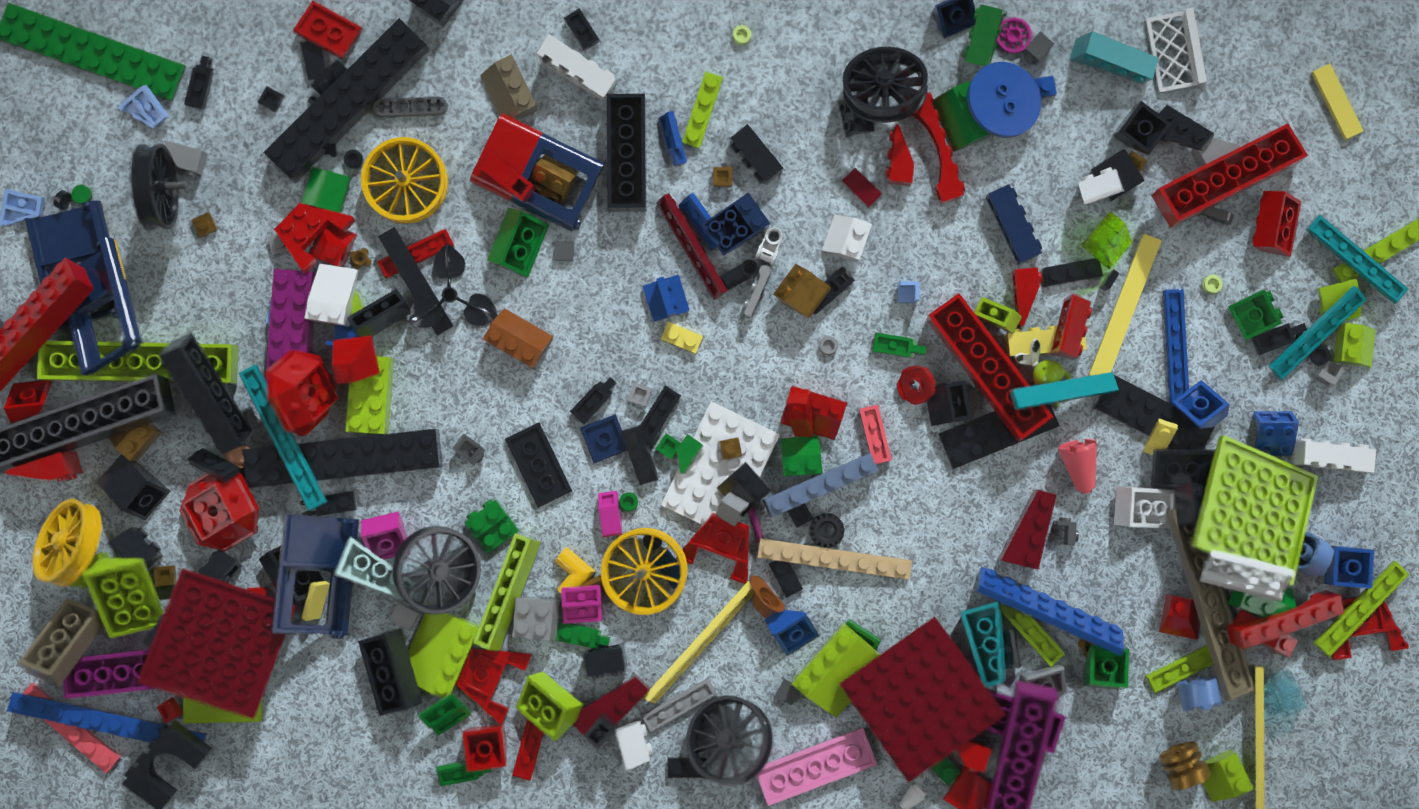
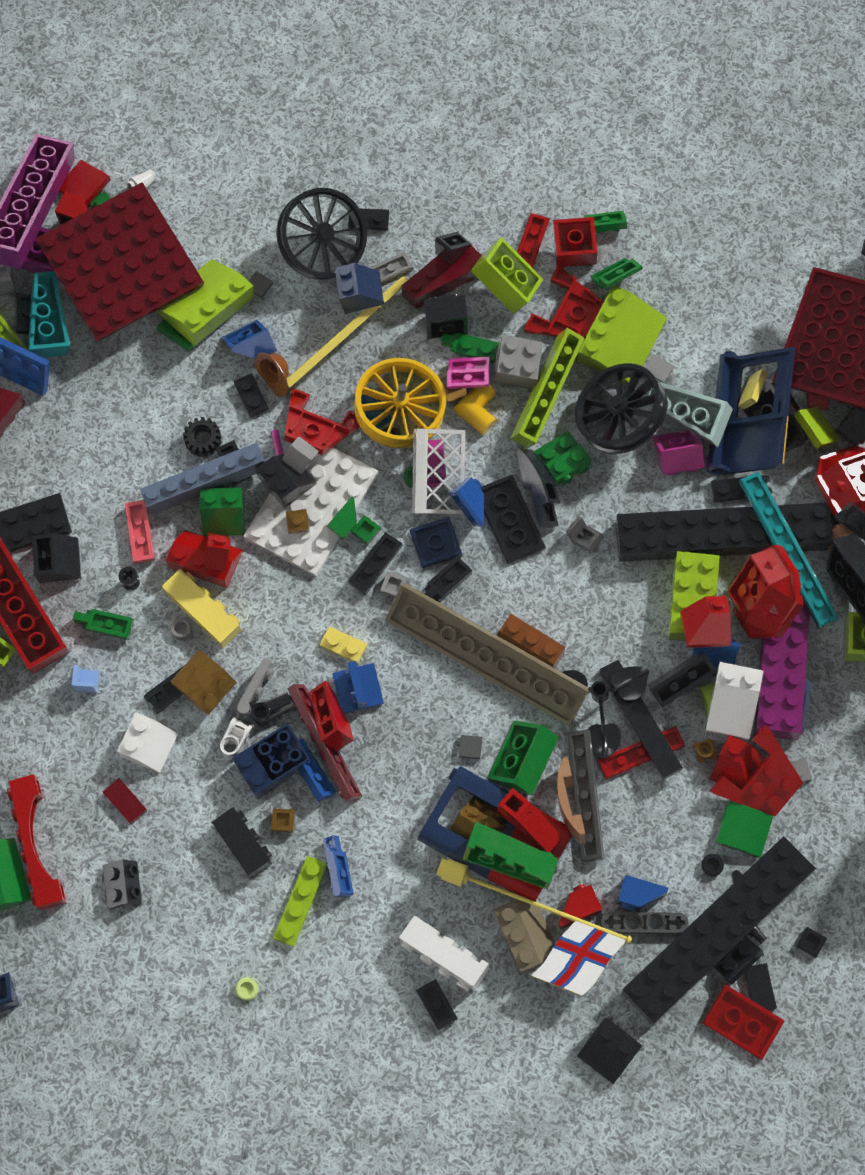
camera: 175 degrees left, 15 degrees down
(256, 563) = (816, 427): none -> lime tile
(390, 672) = (673, 314): black brick -> none
(404, 180) = (652, 832): yellow wheel -> none
(415, 127) = (639, 893): none -> blue slope
(462, 212) = (586, 794): none -> dark grey tile
(464, 70) = (579, 952): none -> flag
(465, 116) = (580, 904): none -> red slope
(467, 178) = (573, 823): none -> medium nougat slope
(513, 501) = (539, 480): none -> black slope
(522, 143) = (509, 856): none -> green wedge
(553, 331) = (487, 654): none -> dark tan plate
(572, 474) = (470, 500): none -> blue slope
(620, 504) = (420, 466): none -> white fence
(626, 153) = (391, 851): black brick -> none
(633, 744) = (421, 238): white slope -> none
(640, 454) = (397, 521): black plate -> none
(688, 268) = (330, 719): none -> red slope
(689, 685) = (358, 287): none -> dark blue slope
(811, 363) = (201, 608): none -> light yellow brick
(816, 766) = (234, 214): bright pink plate -> none
(834, 558) = (197, 407): tan plate -> none
(874, 388) = (129, 572): none -> black bush
(885, 84) = (83, 909): black wheel -> none
(901, 161) = (76, 823): red slope -> none
(926, 385) = (81, 586): red plate -> none

